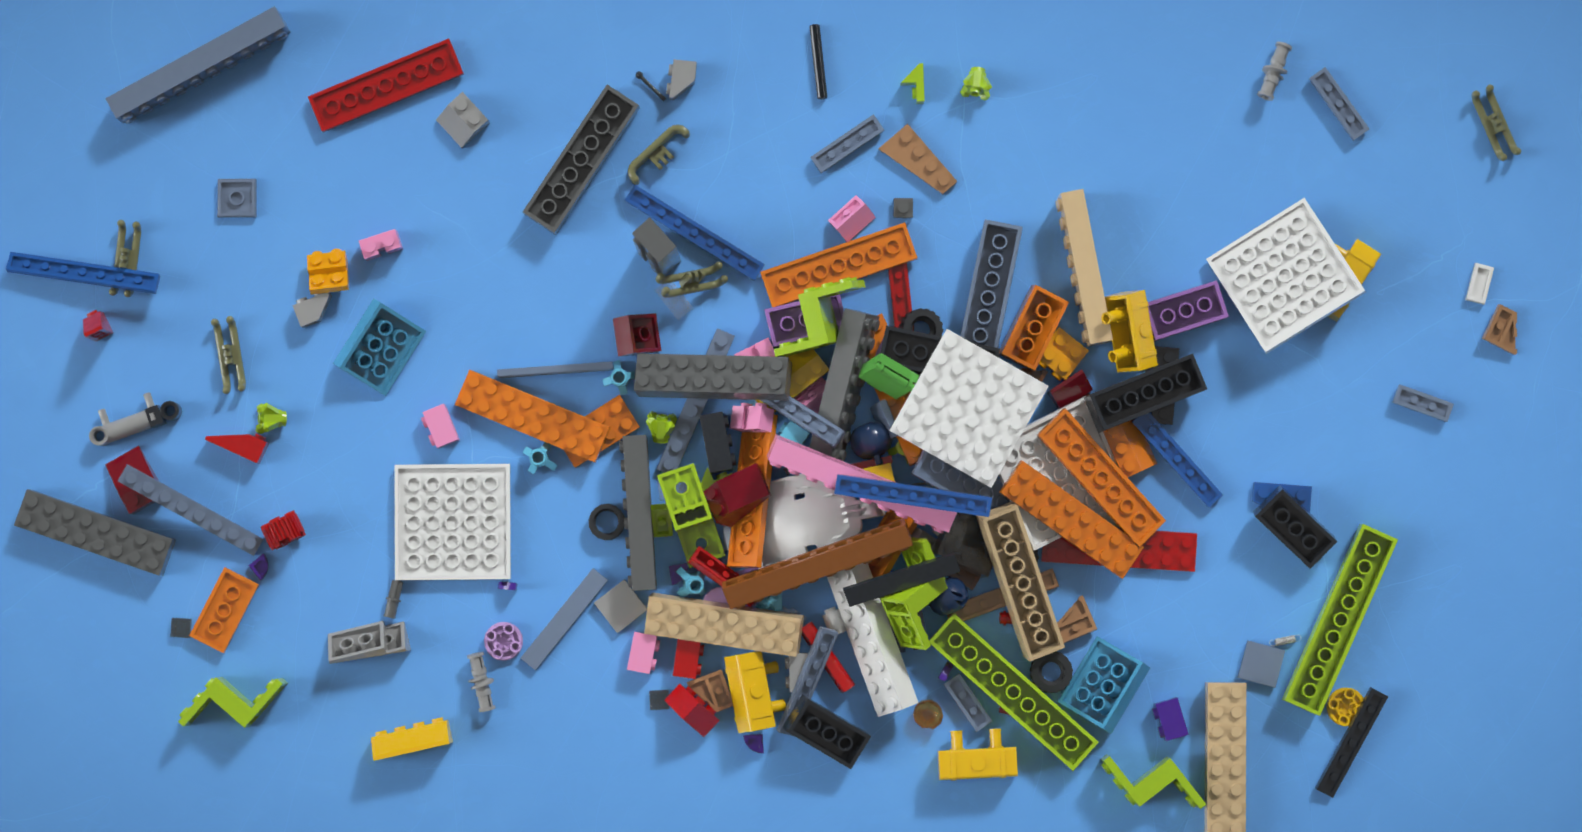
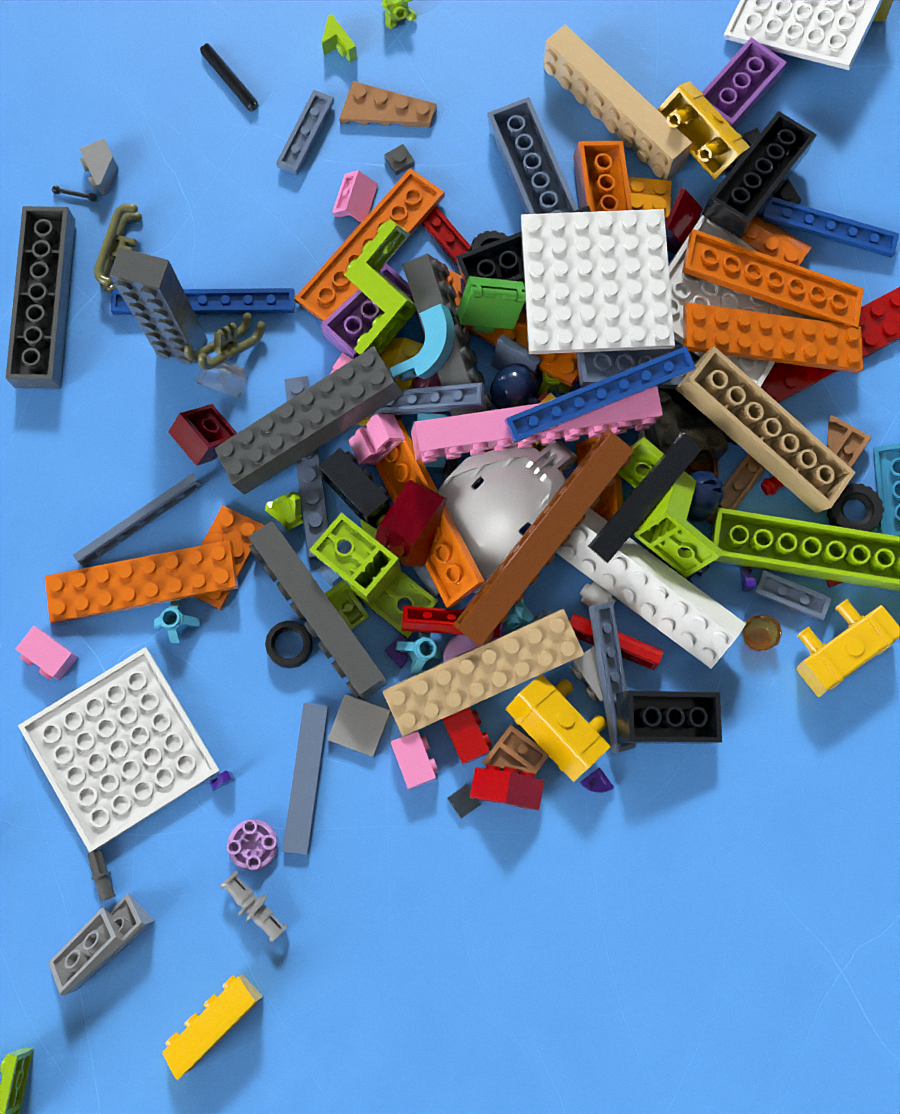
camera: 30 degrees left, 10 degrees down
(619, 378) = (212, 488): medium azure rock -> none
(836, 379) = (436, 348): none -> medium azure arch

